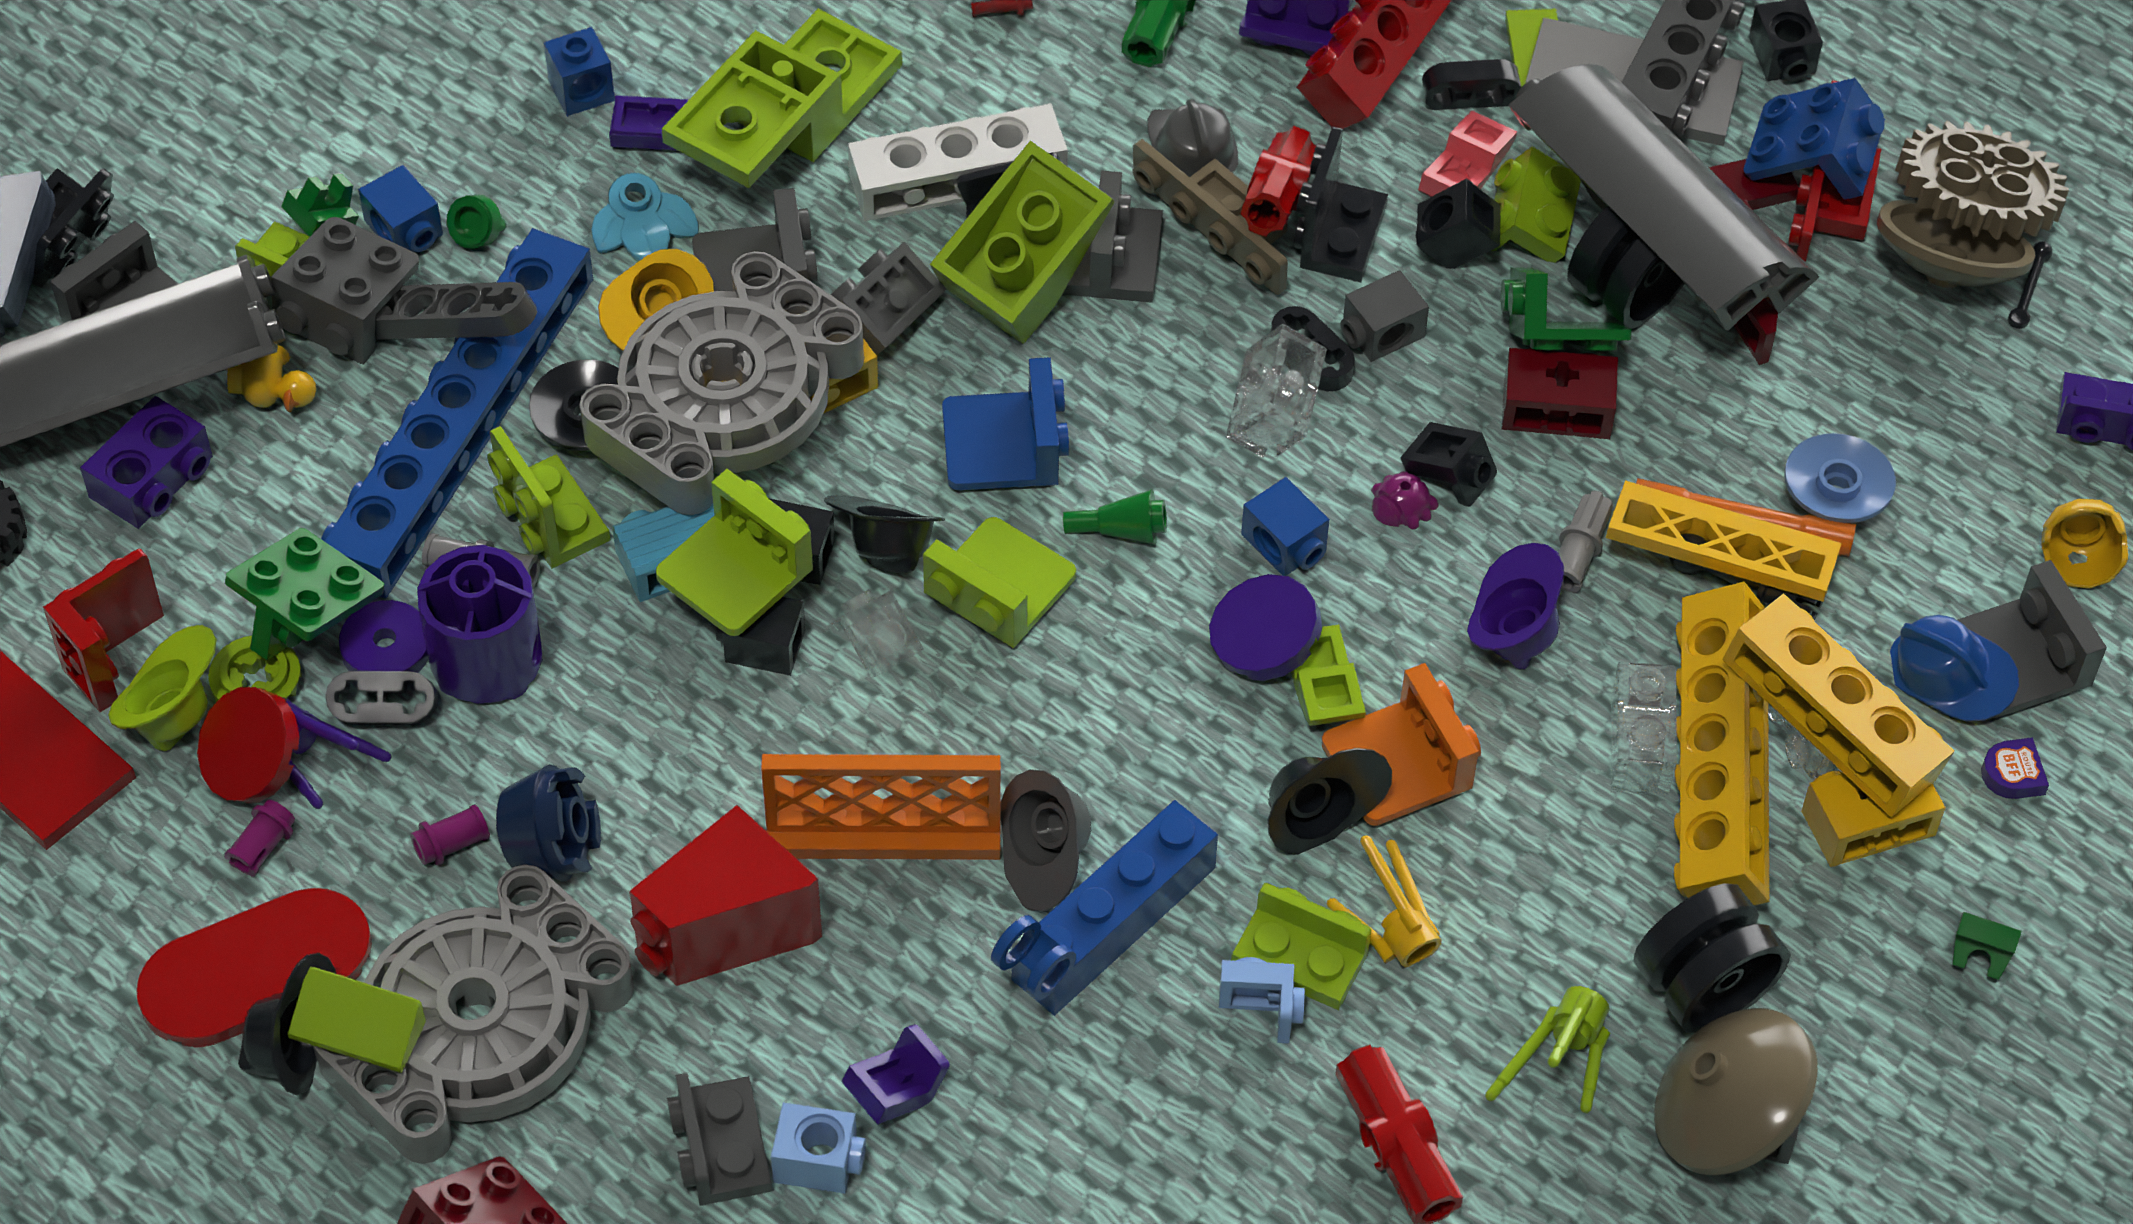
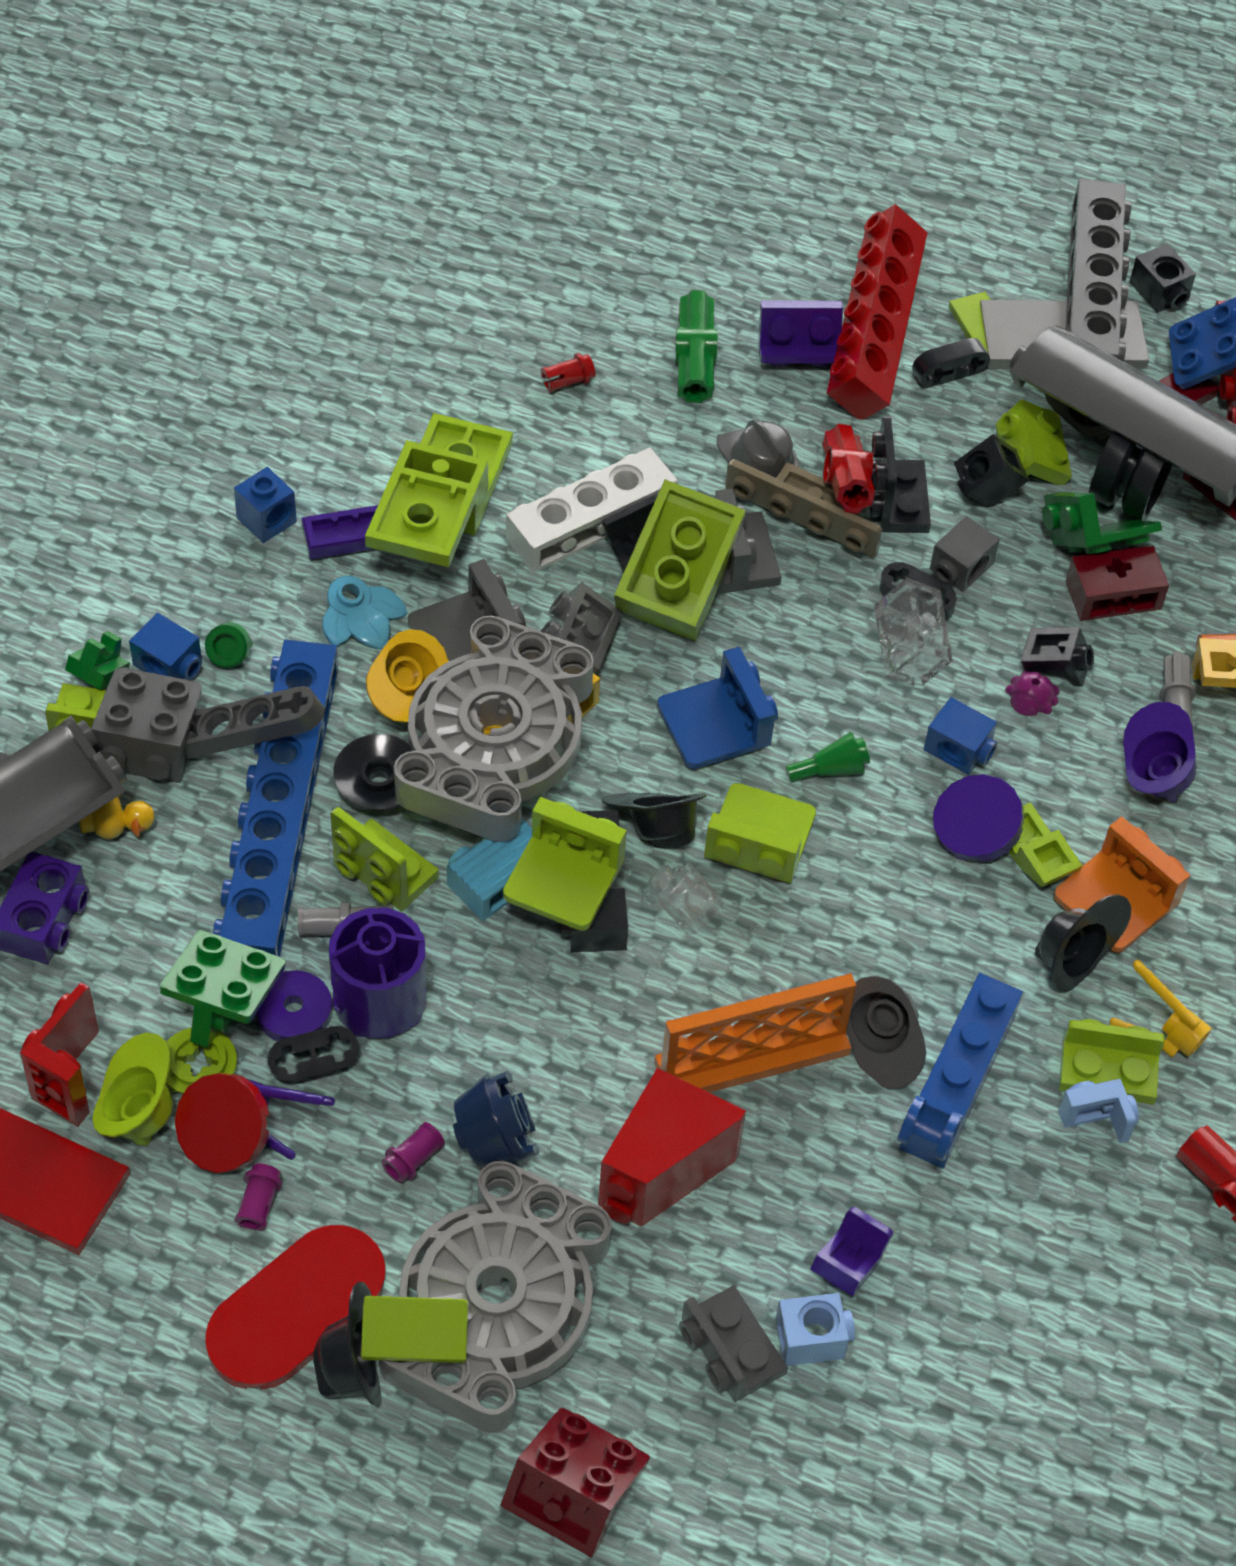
camera: 20 degrees left, 0 degrees up
(1471, 153) = (969, 418): coral slope -> none

